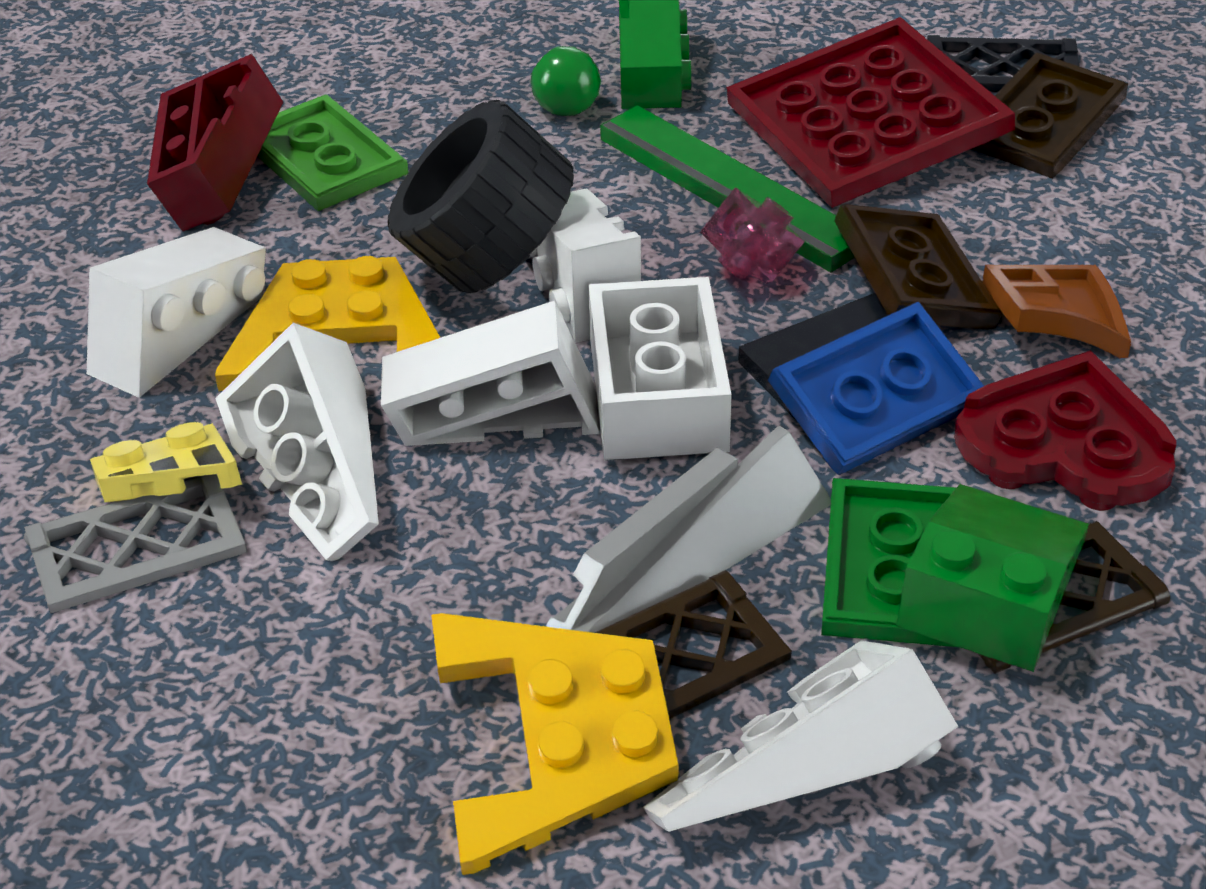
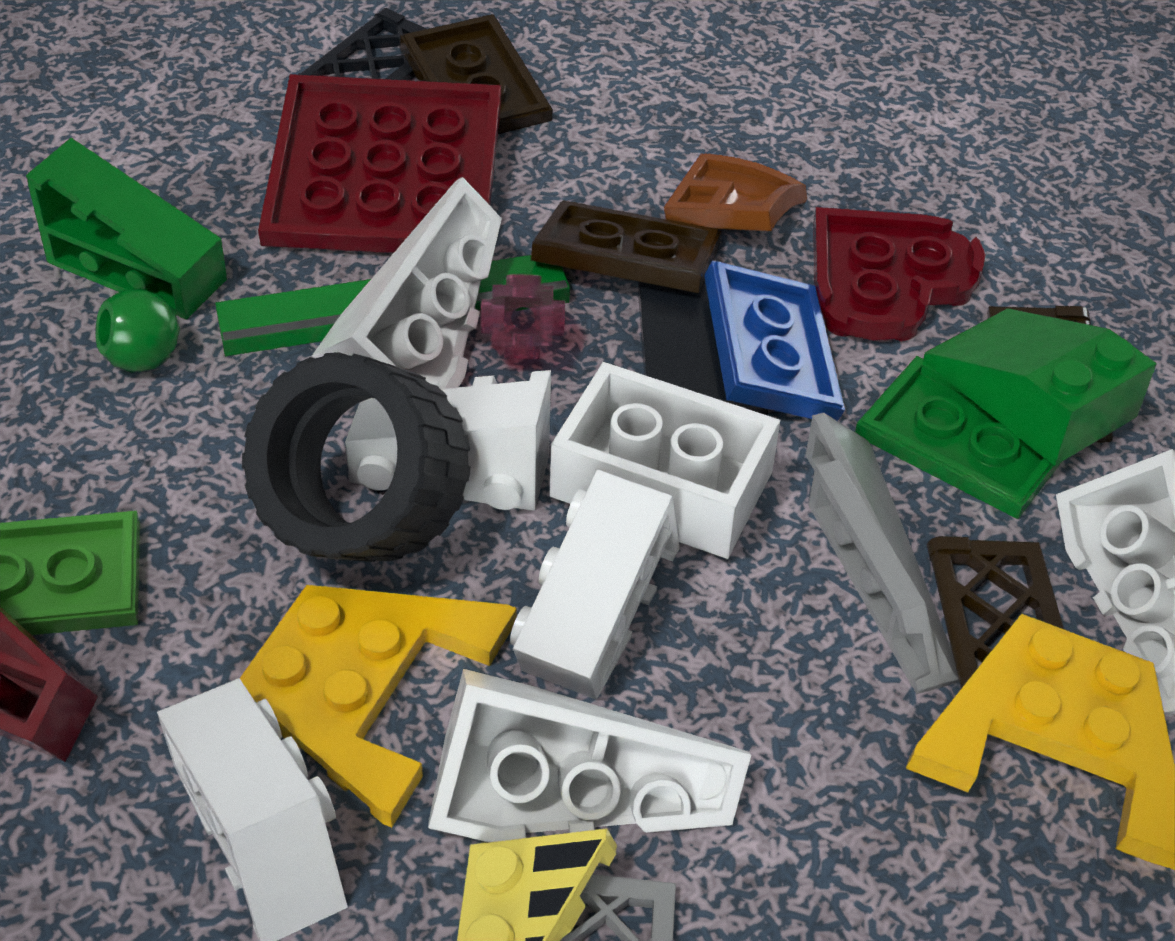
camera: 65 degrees left, 5 degrees up
(678, 184) = (425, 293): none -> white wedge

